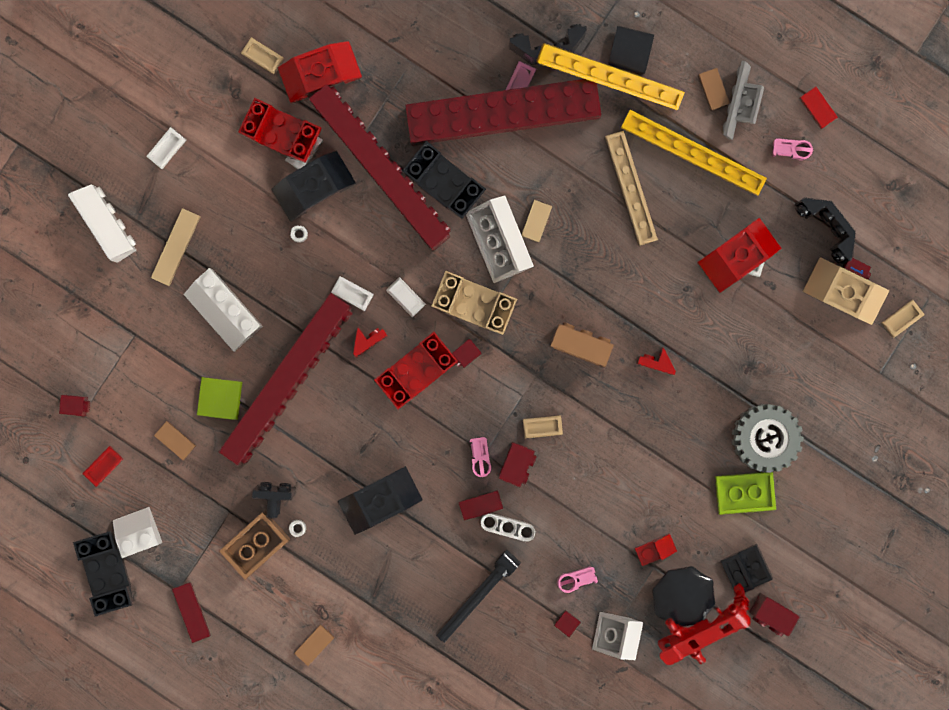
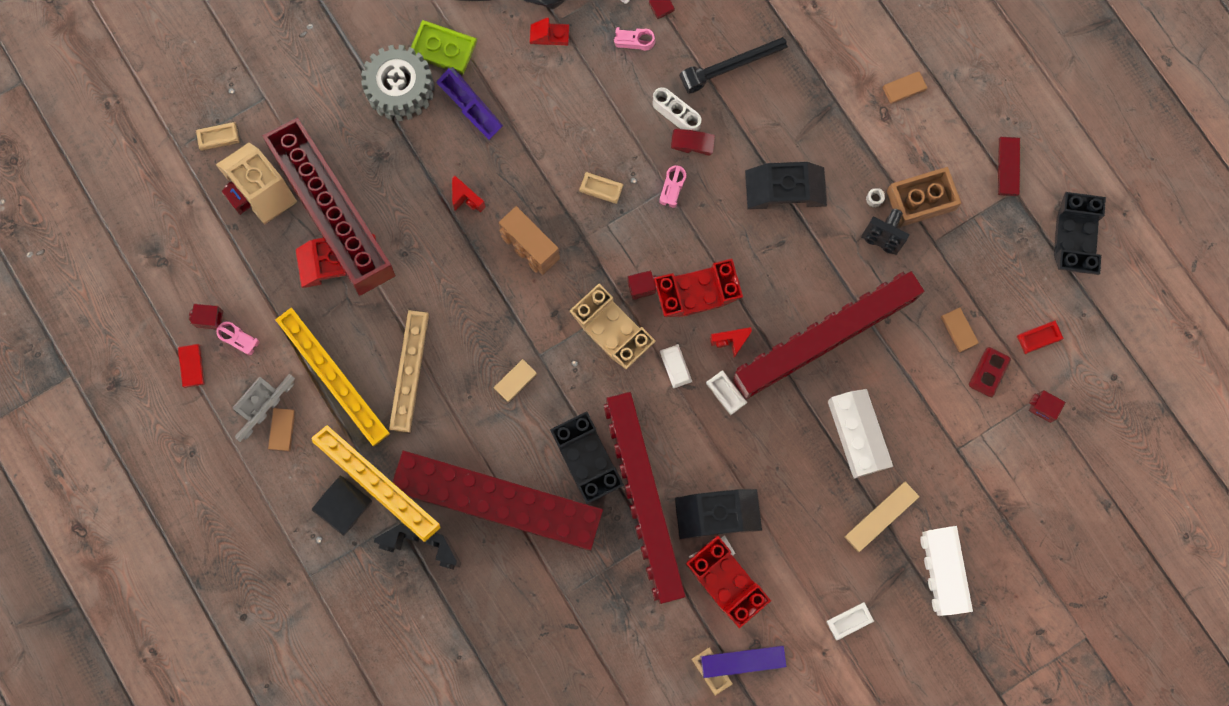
camera: 160 degrees left, 10 degrees down
(136, 532) = (1033, 259): white slope -> none
(140, 416) = (984, 366): none -> dark red piece
(219, 398) = (899, 349): lime slope -> none
(240, 73) = (743, 661): none -> dark purple slope
(294, 229) = (753, 467): white axle -> none
(317, 68) = (661, 626): red slope -> none
(499, 239) = (559, 378): white slope -> none
(516, 464) = (642, 159): dark red brick -> none
(521, 76) = (464, 528): bright pink tile -> none
(690, 448) = (469, 102): none -> dark purple slope
(769, 292) = (329, 207): none -> dark red brick
(827, 154) = (206, 316): none -> dark red brick
(844, 249) = (236, 221): black slope -> none

